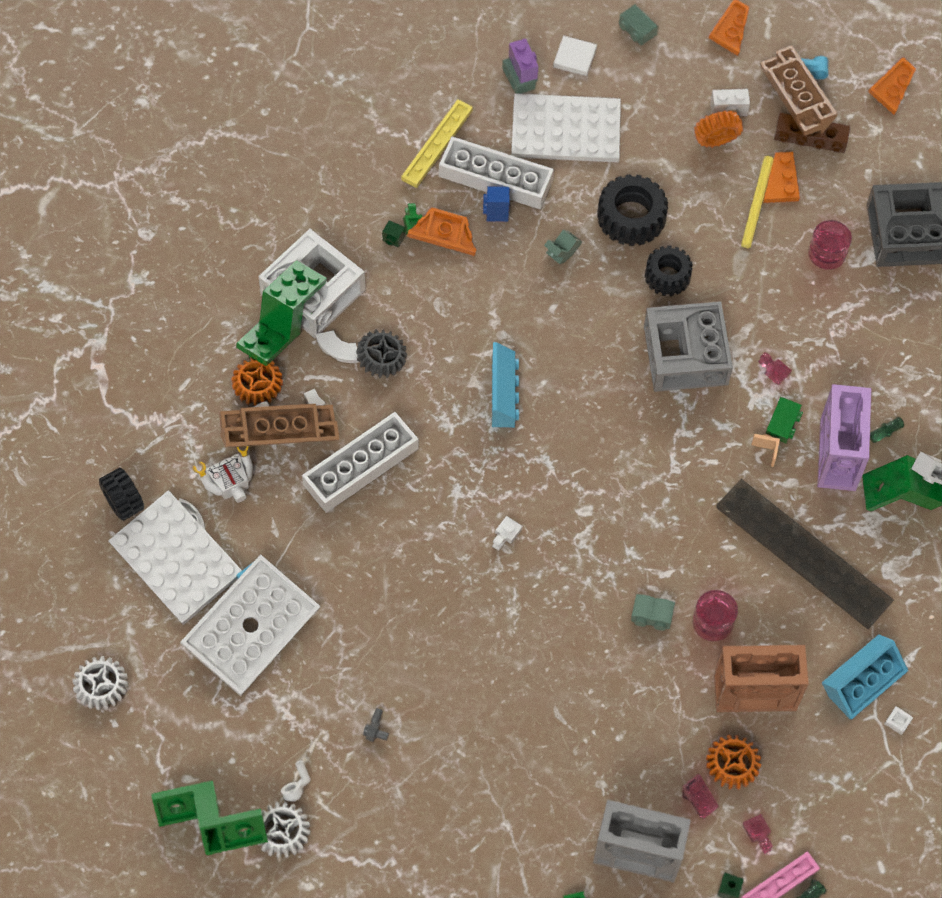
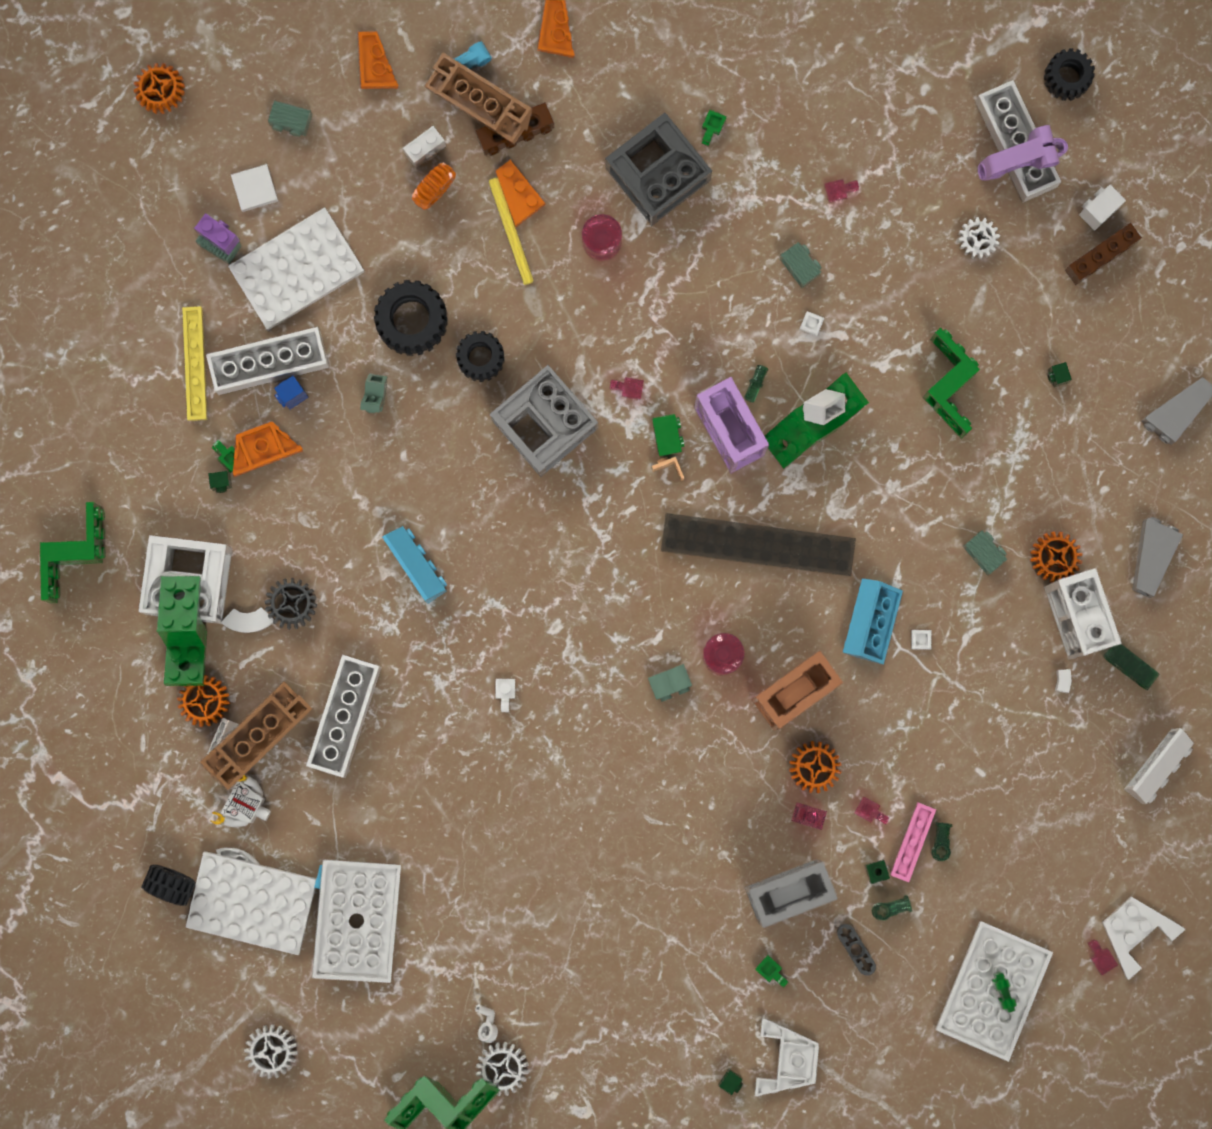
camera: 30 degrees left, 20 degrees up
(239, 210) = (72, 553): none -> green bracket
(312, 397) = (264, 685): white piece -> none
(372, 730) = (515, 939): dark grey piece -> none

